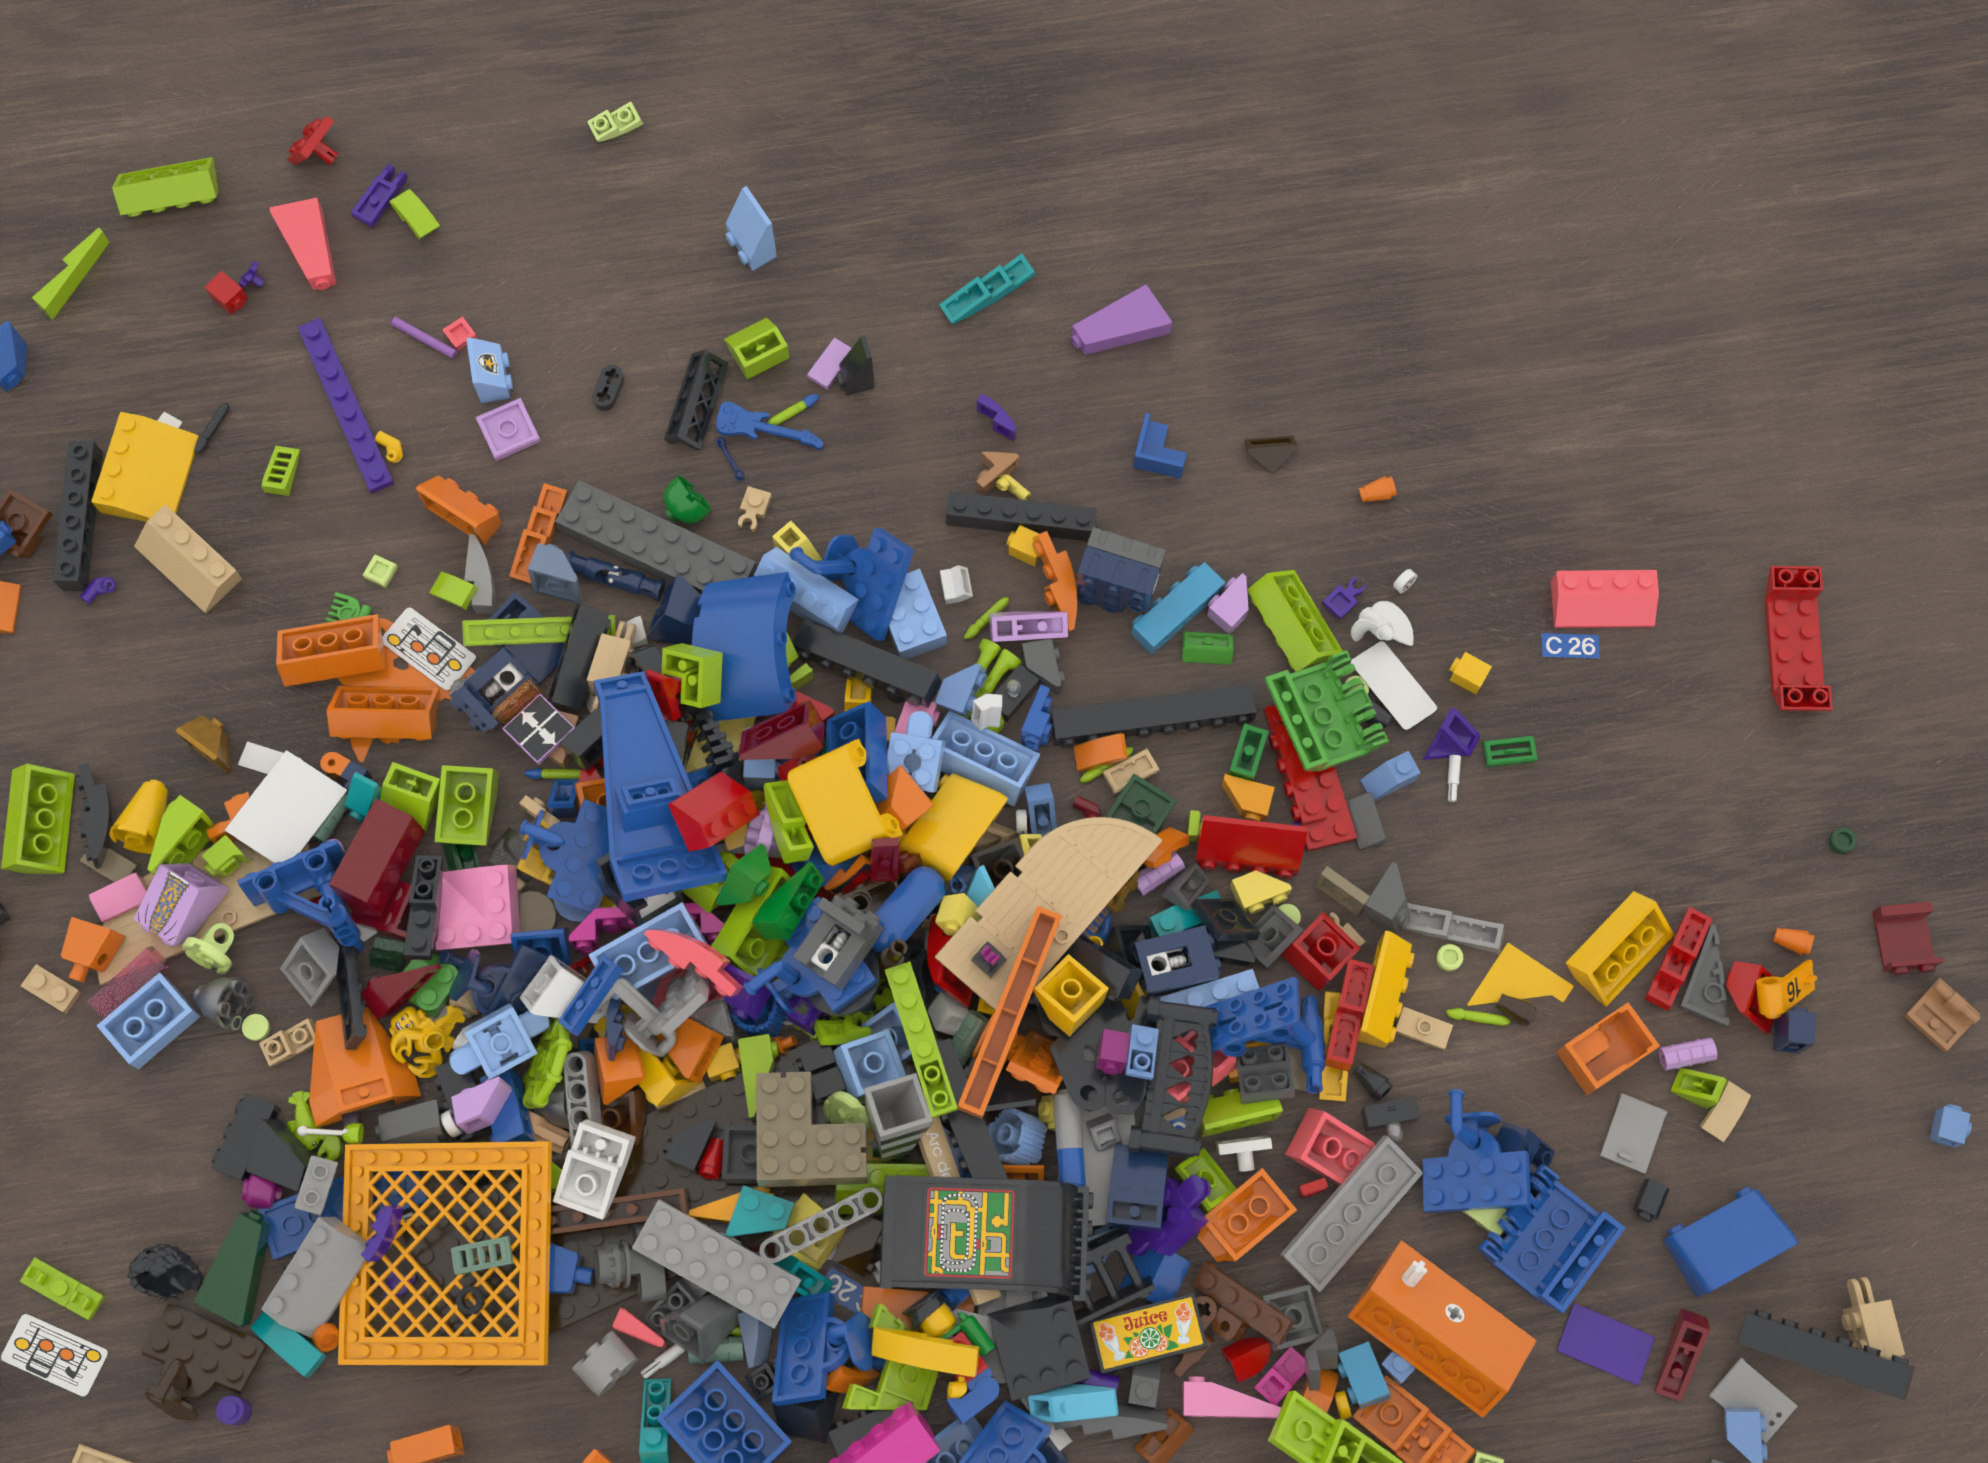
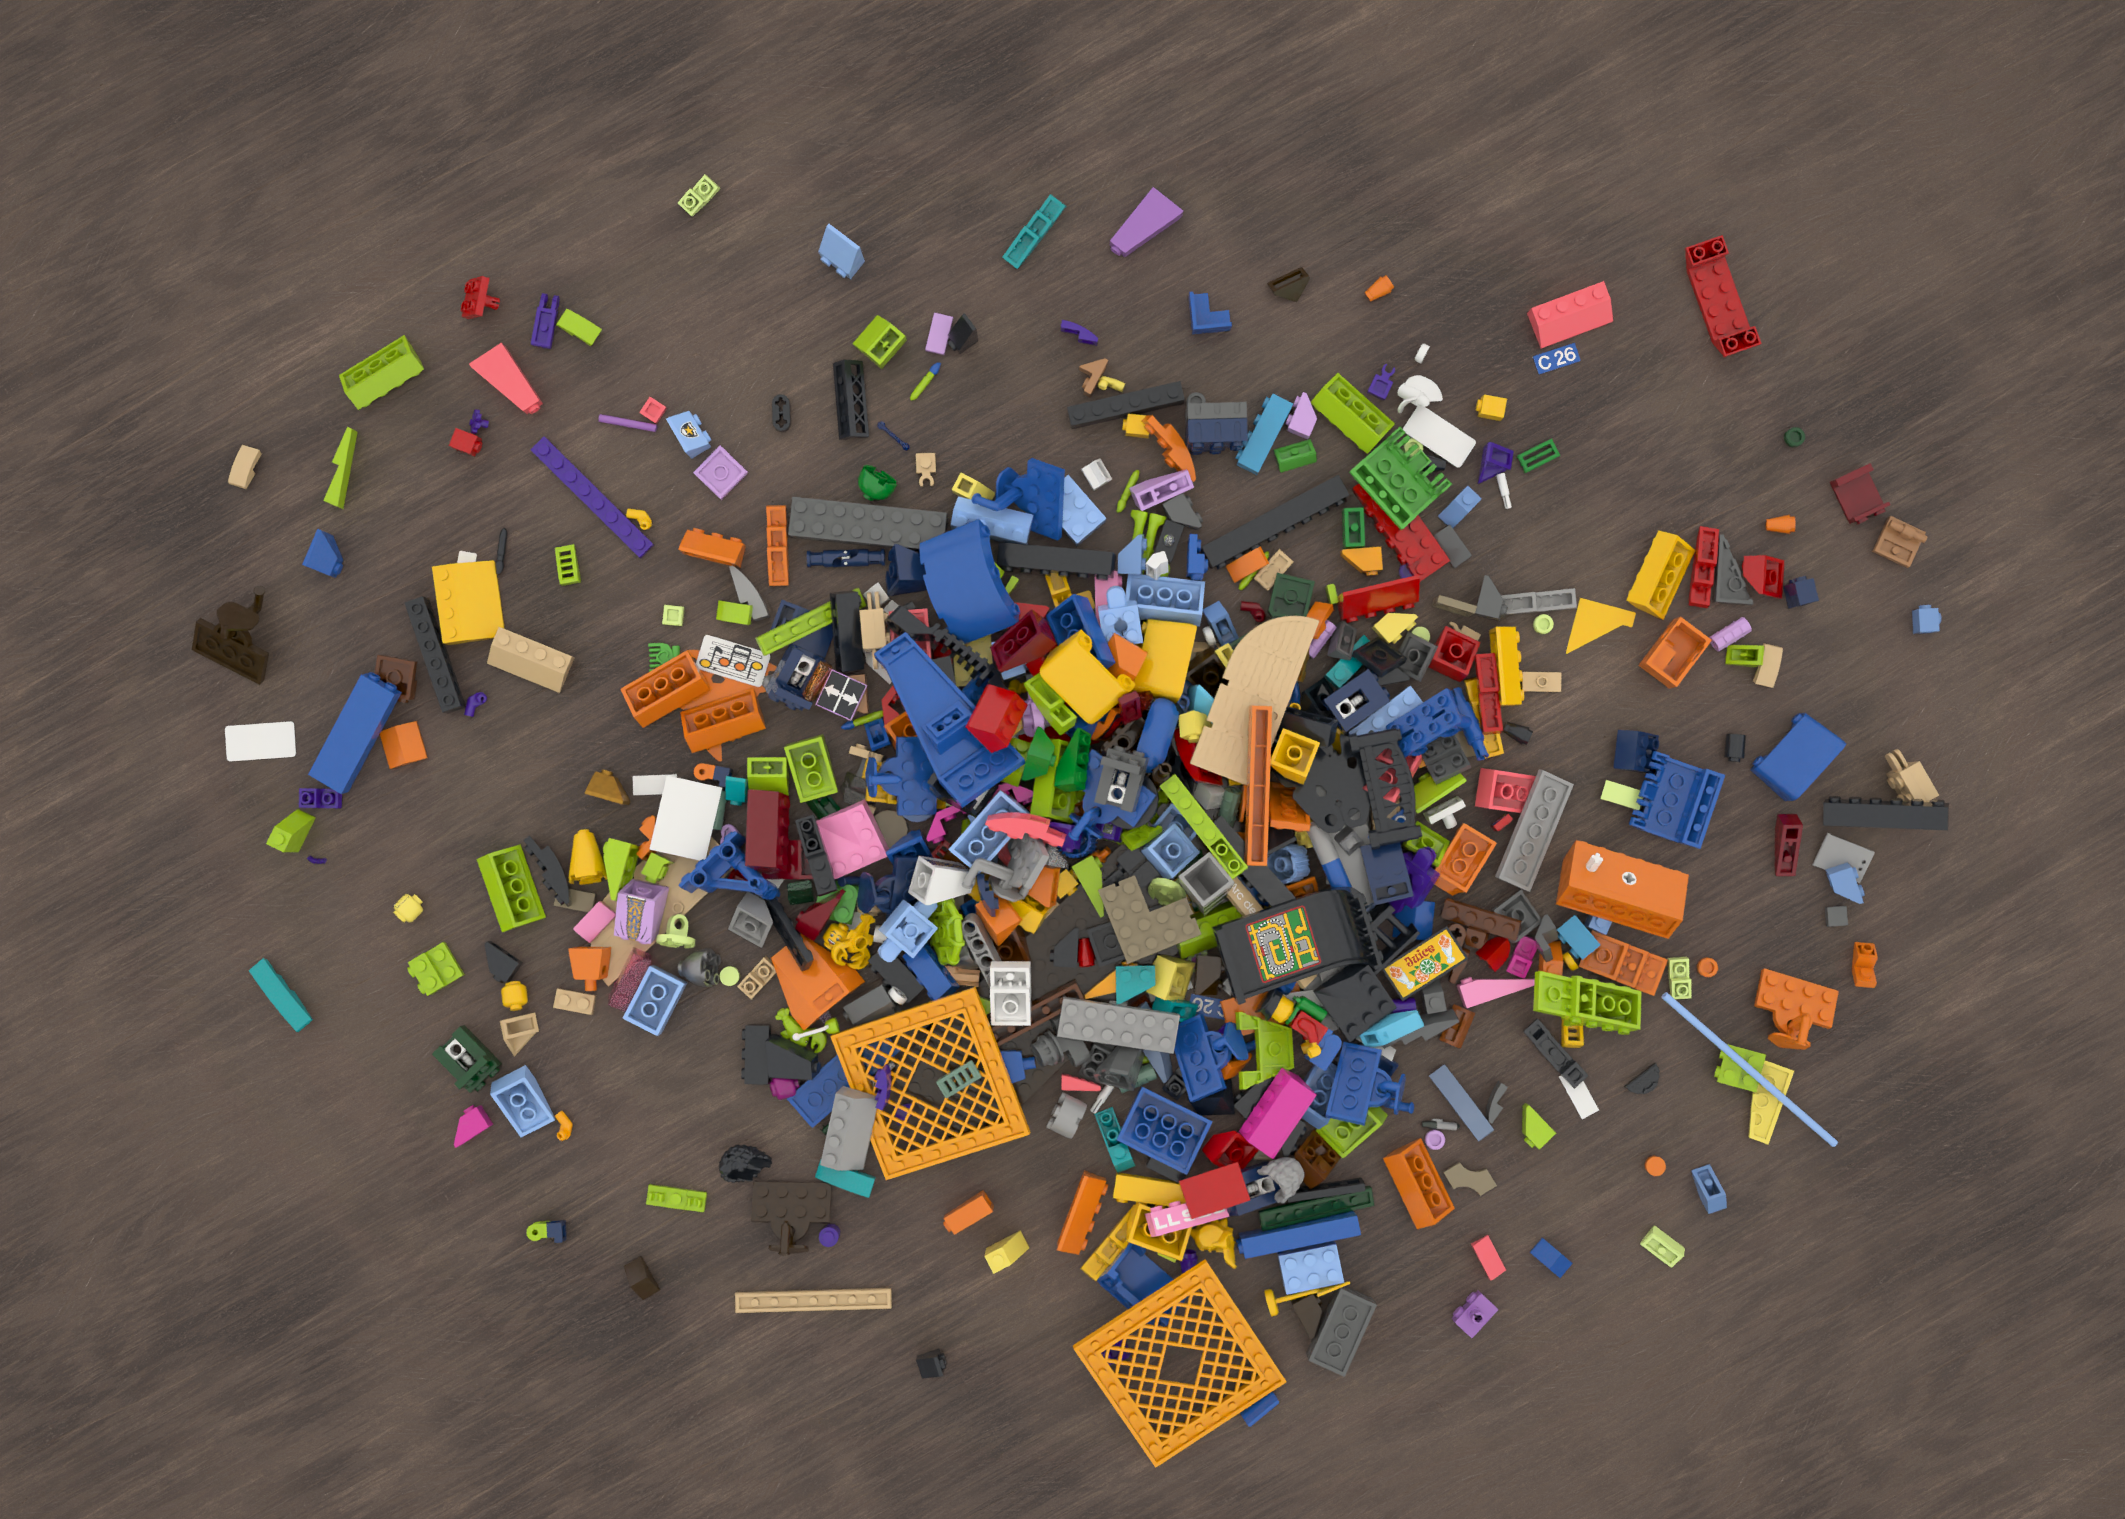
camera: 15 degrees left, 15 degrees up
(54, 1355) = (690, 1242): sticker -> none
(236, 1271) = (791, 1150): dark green slope -> none
(316, 1185) = (823, 1071): light grey bracket -> none
(326, 1337) = (870, 1165): orange tile -> none
(480, 1105) = (913, 977): lavender slope -> none
(480, 1300) = (956, 1114): black piece -> none
(553, 574) = (803, 574): sand blue slope -> none
(584, 742) = (880, 691): black brick -> none
(590, 995) = (962, 878): blue tile -> none
(665, 691) = (925, 638): red slope -> none
(699, 673) = (944, 617): lime brick -> none
(736, 421) = (887, 405): blue piece -> none
(811, 1234) = (1183, 965): light grey beam -> none
(925, 1351) = (1282, 1035): yellow slope -> none
(988, 959) = (1229, 752): black piece -> none
(1112, 1051) = (1337, 785): magenta brick -> none
(1141, 1052) = (1357, 779): medium blue slope -> none
(1391, 1116) = (1539, 753): black piece -> none
(1475, 1016) = (1576, 659): lime piece -> none
(1475, 1176) = (1610, 771): blue plate -> none
(1516, 1008) = (1603, 645): dark brown cone -> none
(1605, 1344) = (1733, 855): dark purple window -> none
(1633, 1133) = (1708, 703): light grey container -> none
(1781, 993) = (1783, 571): light orange door -> none

